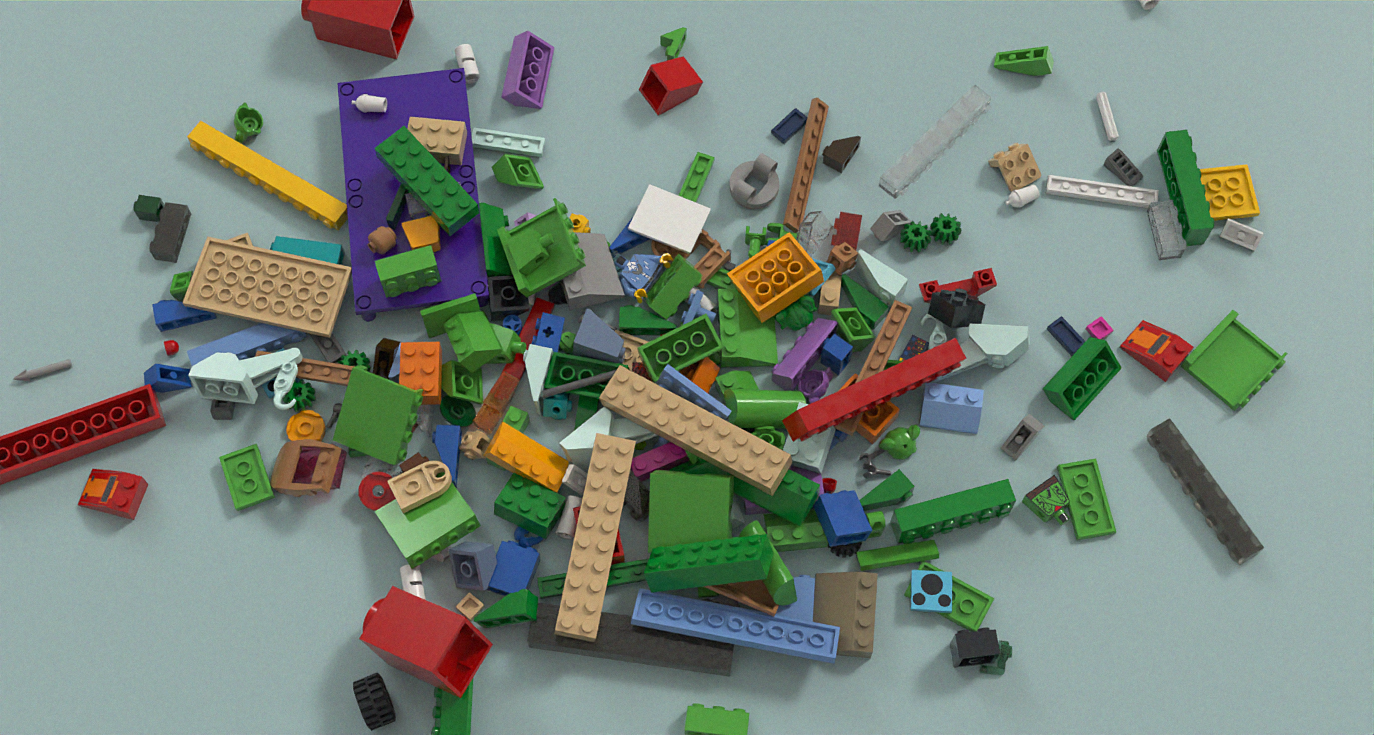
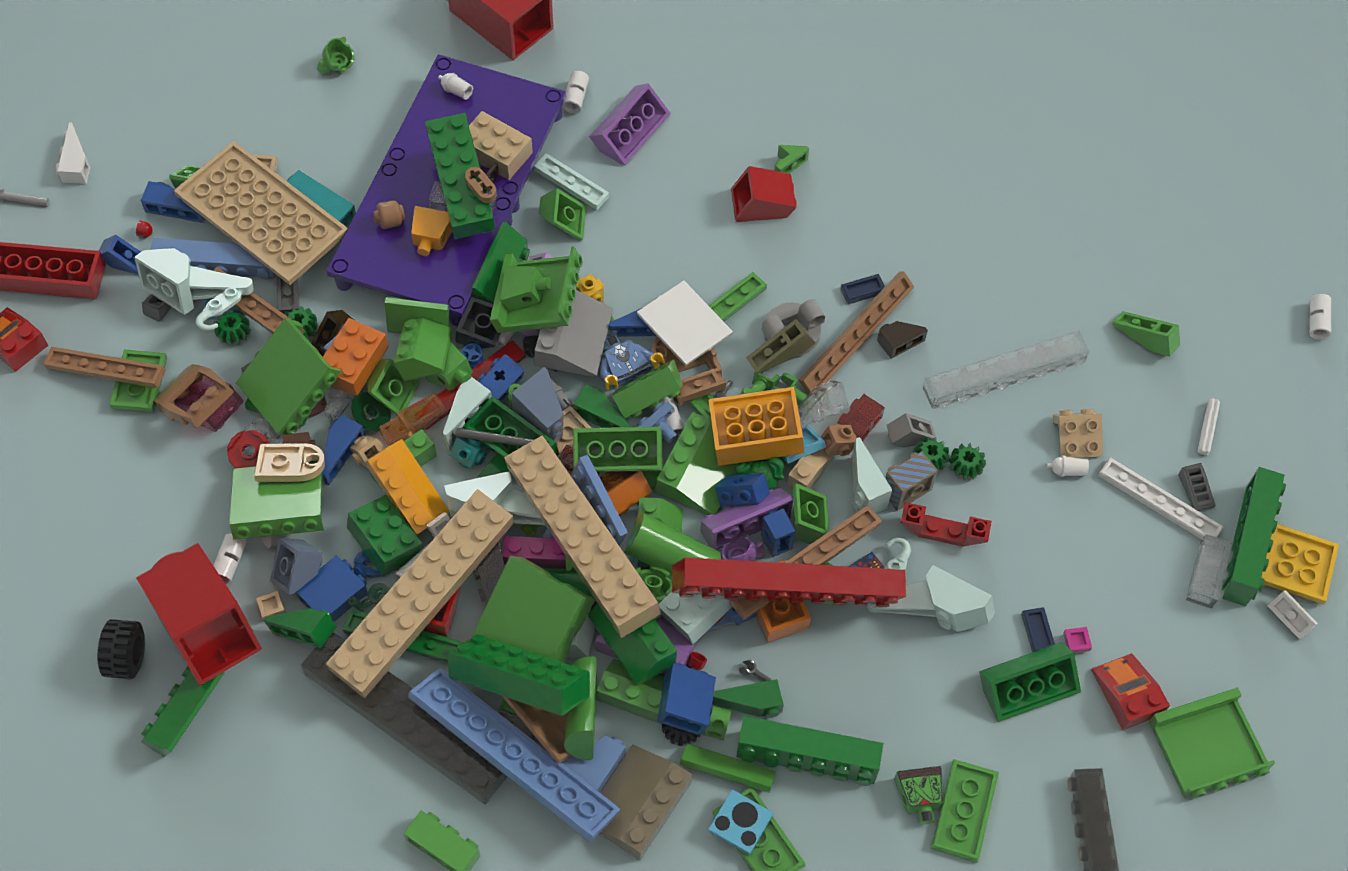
camera: 25 degrees right, 5 degrees down
(74, 318) = (73, 163): none -> white slope
(148, 208) = (201, 95): dark green brick -> none
(170, 232) = (207, 125): clear smoke brick -> none
(213, 479) = (104, 367): none -> medium nougat plate
(268, 175) = (327, 112): yellow brick -> none
(306, 426) = (223, 360): light orange tile -> none
(397, 207) = (420, 192): dark green tile -> none
(408, 271) = (394, 253): bright green brick -> none
(452, 185) = (477, 188): none -> medium nougat beam
(548, 561) = (373, 597): none -> clear green plate
(757, 204) = (782, 347): none -> olive slope
(791, 333) = (742, 490): none -> blue brick
(868, 305) = (840, 499): green slope -> none
(871, 456) = (758, 654): dark grey hand -> none
(895, 441) = (793, 648): bright green hair -> none
(914, 262) = (911, 479): none -> dark tan container
(951, 407) = (870, 644): light blue slope -> none
(956, 308) = (929, 544): black brick -> none
(1022, 436) = (930, 710): light grey slope -> none

